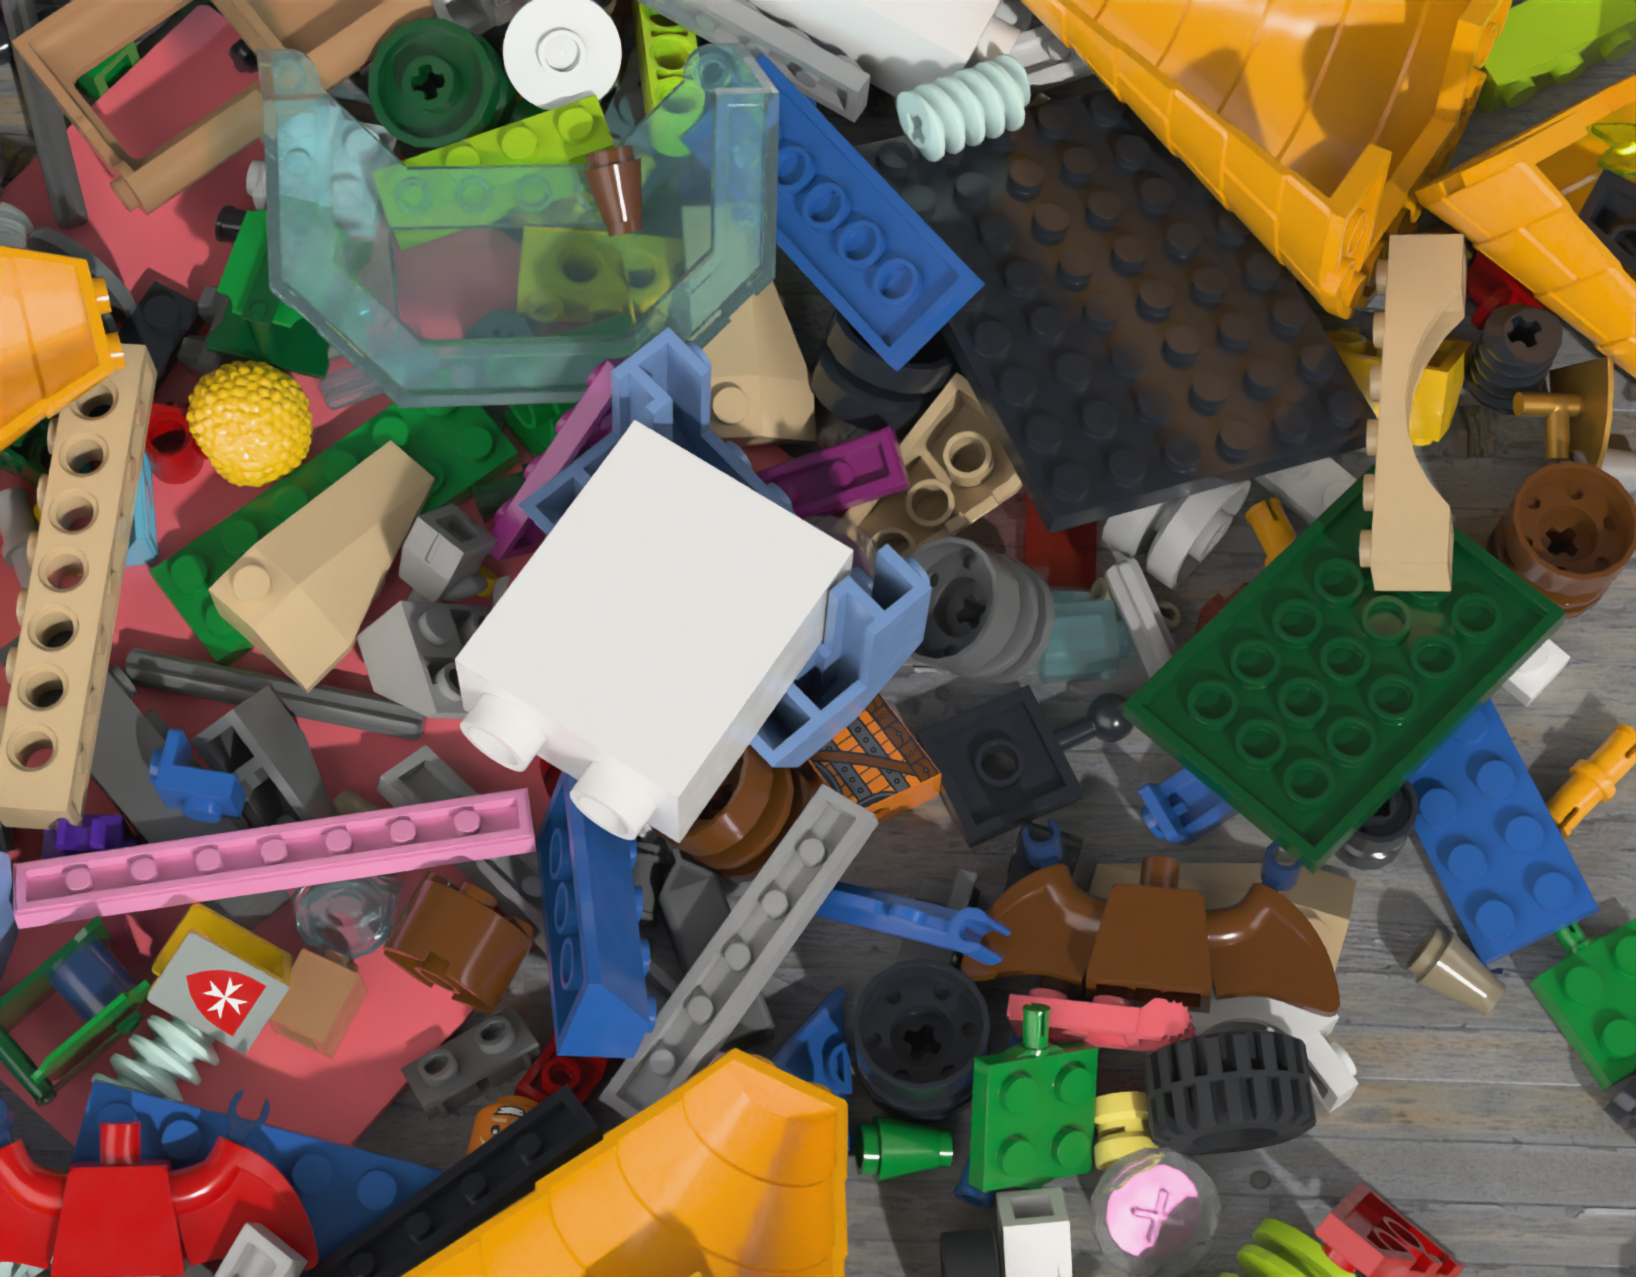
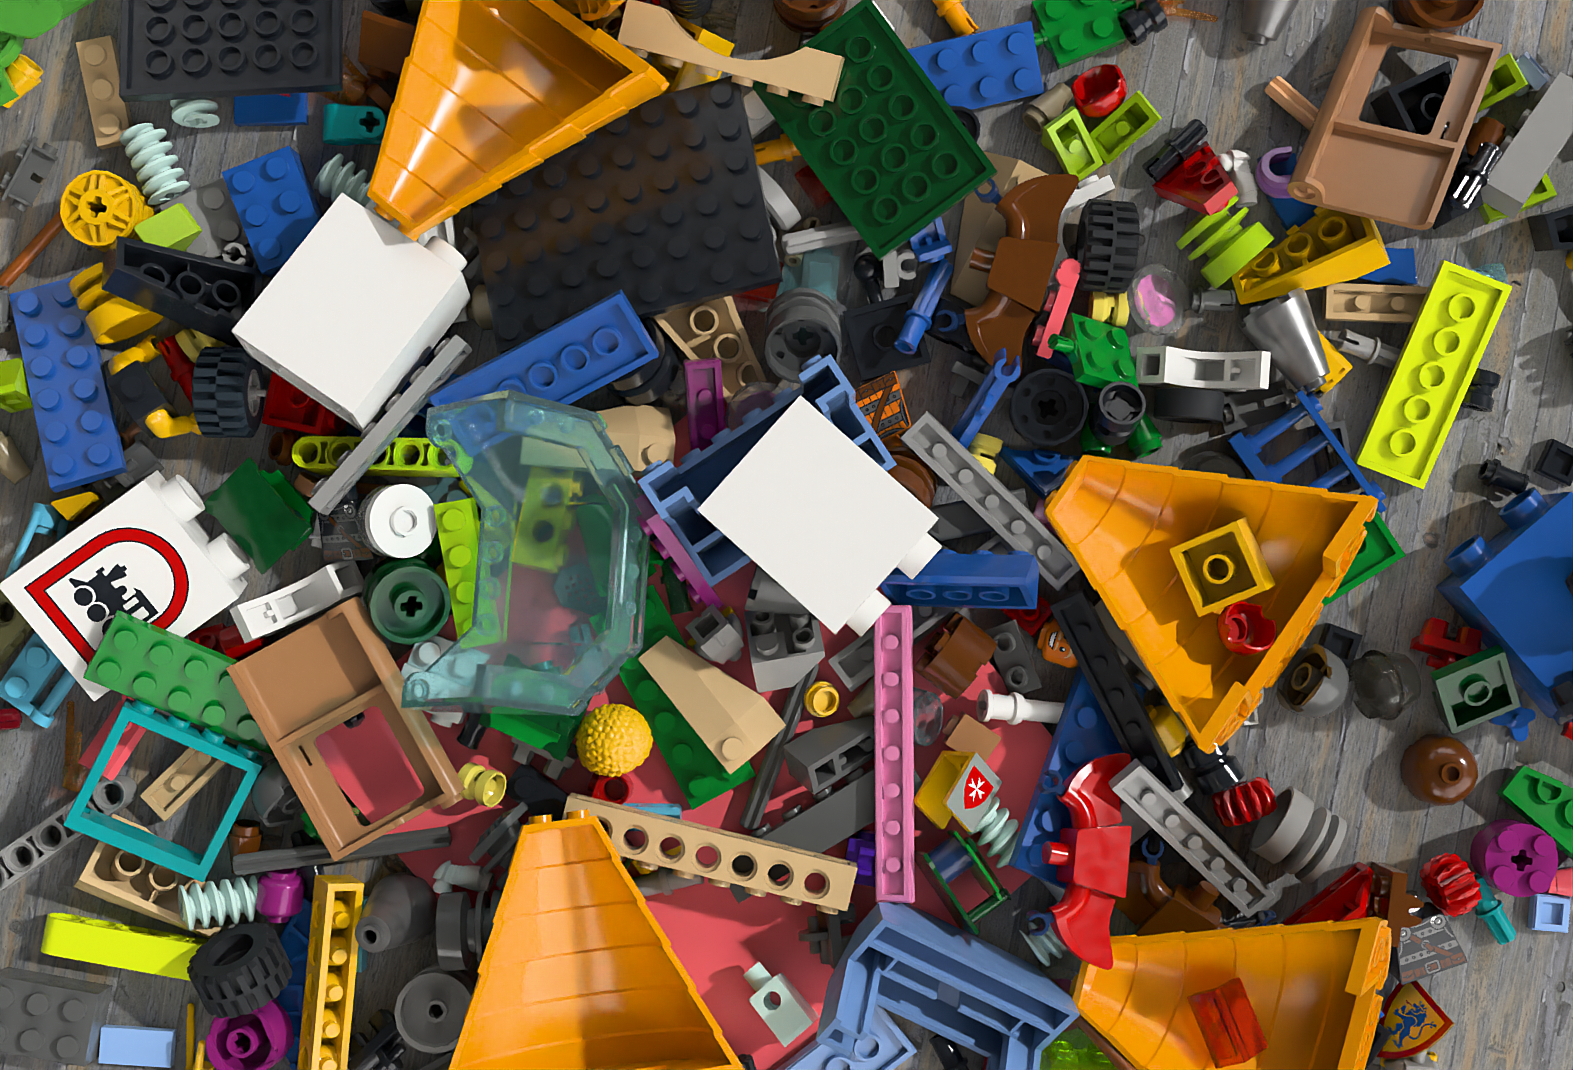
camera: 75 degrees left, 20 degrees up
(158, 246) = (484, 786): none -> light yellow wheel
(196, 791) = (852, 790): blue bracket -> none
(359, 746) = (821, 699): none -> yellow plate
(380, 1069) = (1015, 708): none -> white pin
(616, 188) = (505, 500): reddish brown cone -> none
(838, 958) = (986, 447): none -> light yellow wheel
(911, 1225) = (1145, 438): none -> green cone
(932, 1152) = (1117, 413): none -> black wheel
(965, 107) = (488, 279): light aqua piece -> none
(1078, 817) = (919, 317): none -> blue axle
(1120, 748) = (892, 268): none -> light grey tile
(1398, 1016) = (1071, 144): none -> lime slope
(1433, 1207) = (1175, 149): none -> black axle
(1448, 1102) = (1124, 127): none -> lime slope
(1504, 1053) = (1099, 90): none -> red hair

